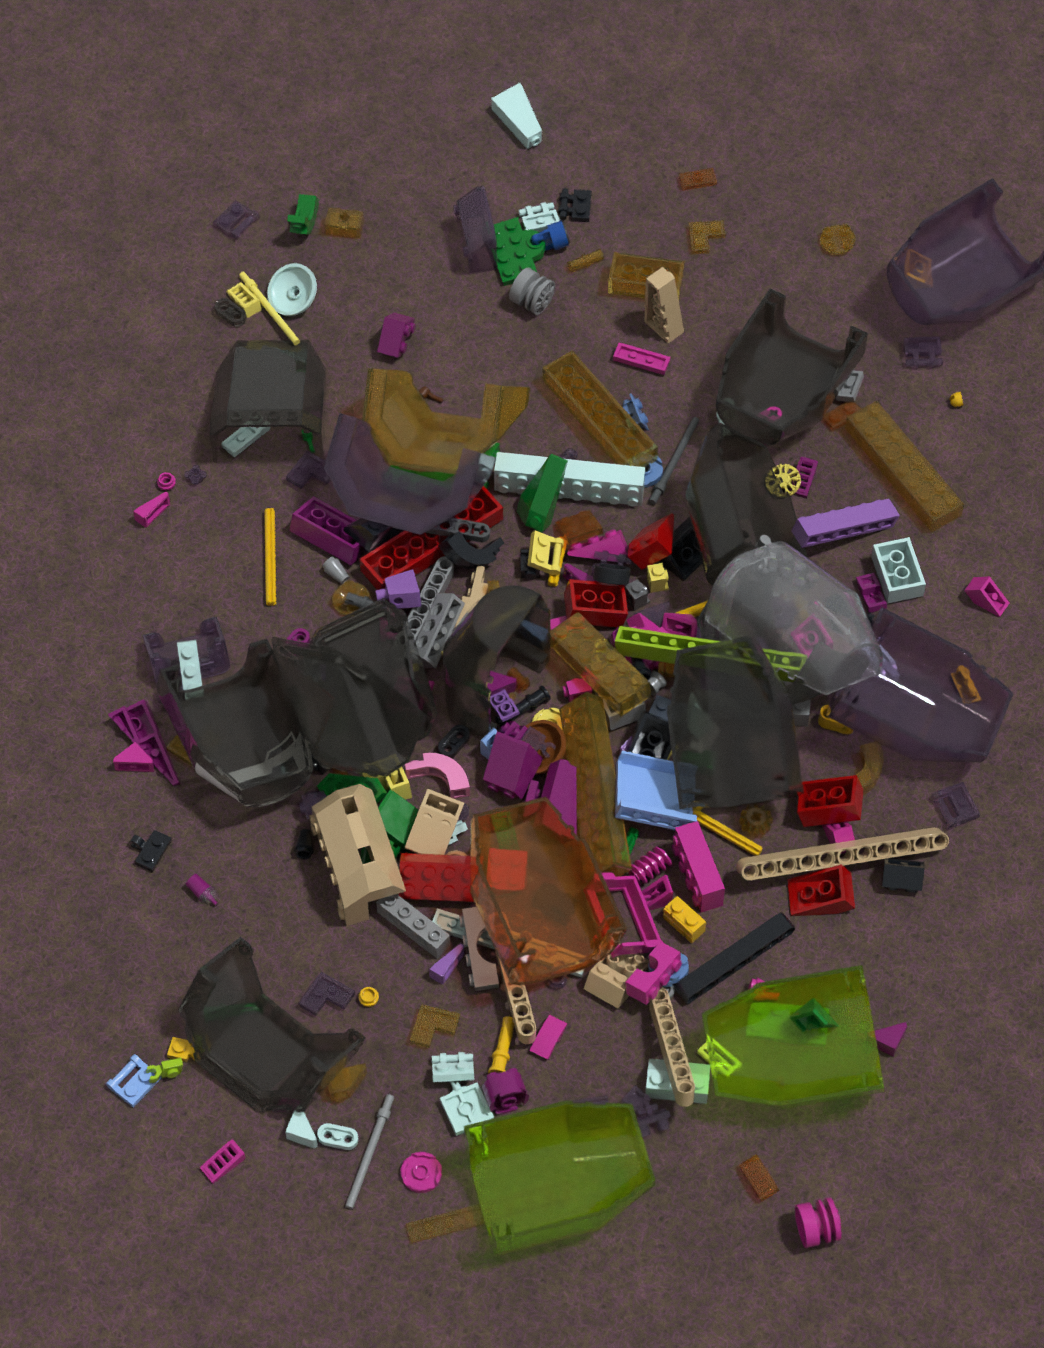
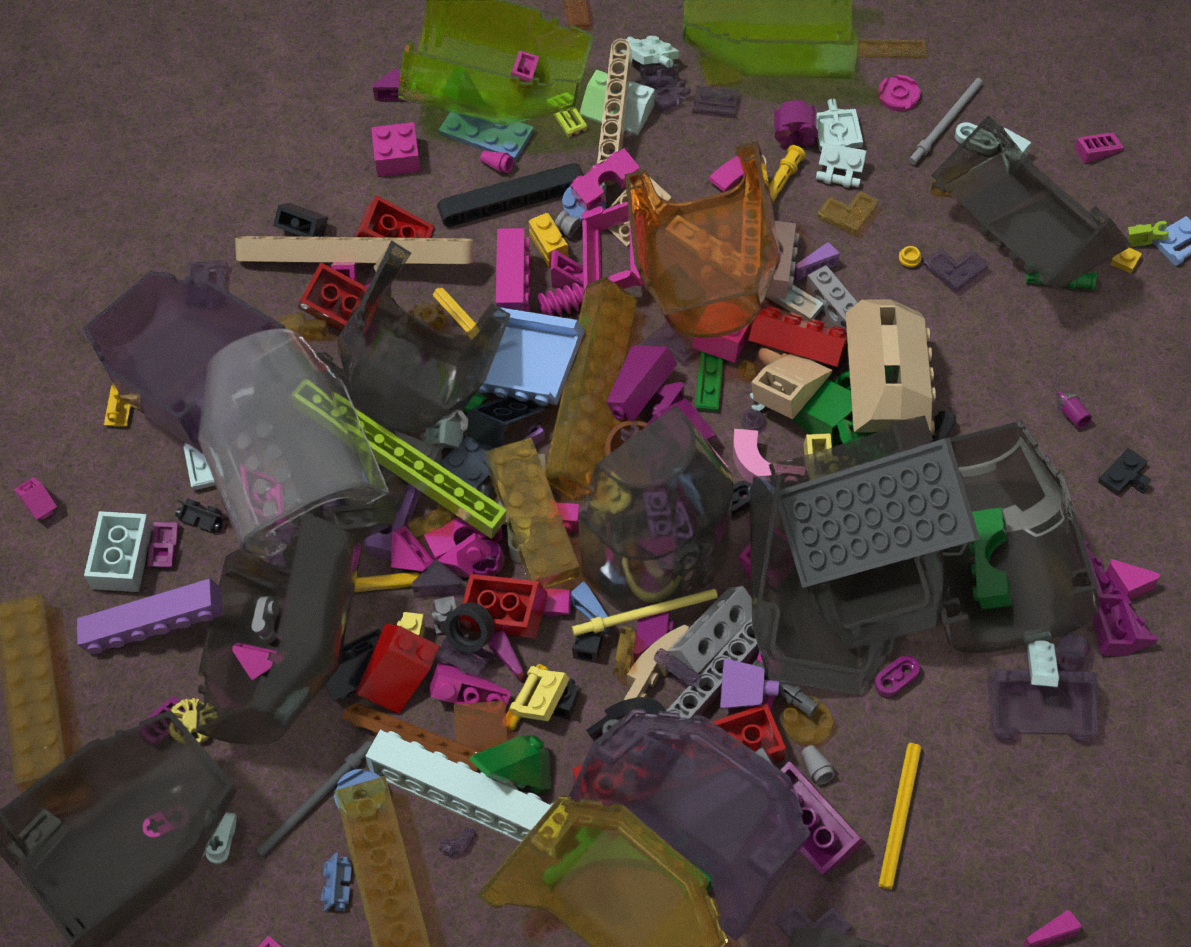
camera: 160 degrees left, 0 degrees up
(238, 712) = (993, 585): none -> green arch
(333, 672) = (877, 513): none -> dark grey plate
(466, 597) = (676, 667): none -> clear purple axle
(618, 506) = (374, 720): none -> dark orange plate
(668, 1138) = (652, 51): none -> light aqua plate
(675, 940) = (567, 223): none -> light grey wheel
(756, 520) = (253, 658): none -> dark pink slope
(773, 1072) = (525, 66): none -> dark pink slope
(860, 956) = (395, 149): none -> dark pink brick

